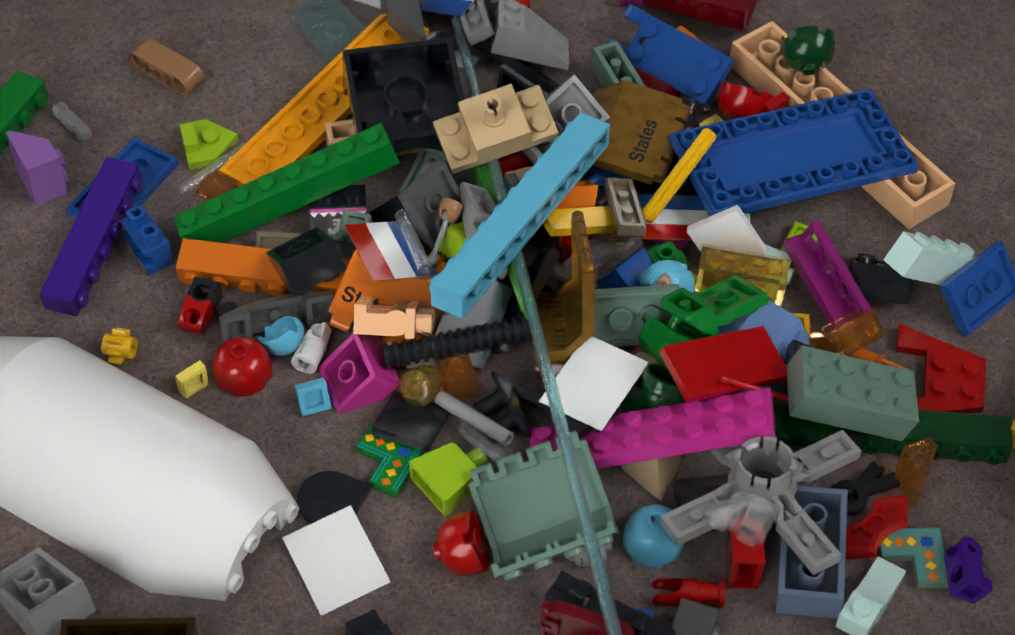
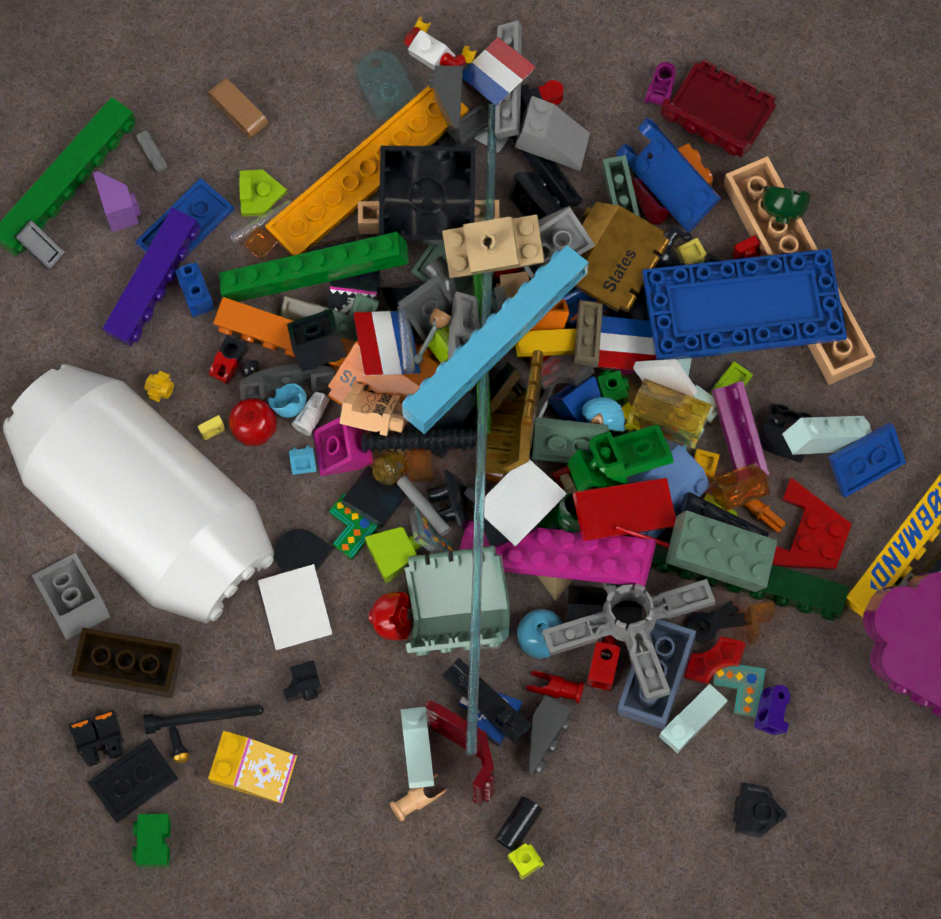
camera: 15 degrees right, 20 degrees up
(678, 175) = (637, 316): yellow axle -> none
(741, 100) = (720, 236): red cylinder -> none
(745, 515) = (603, 648): clear slope -> none

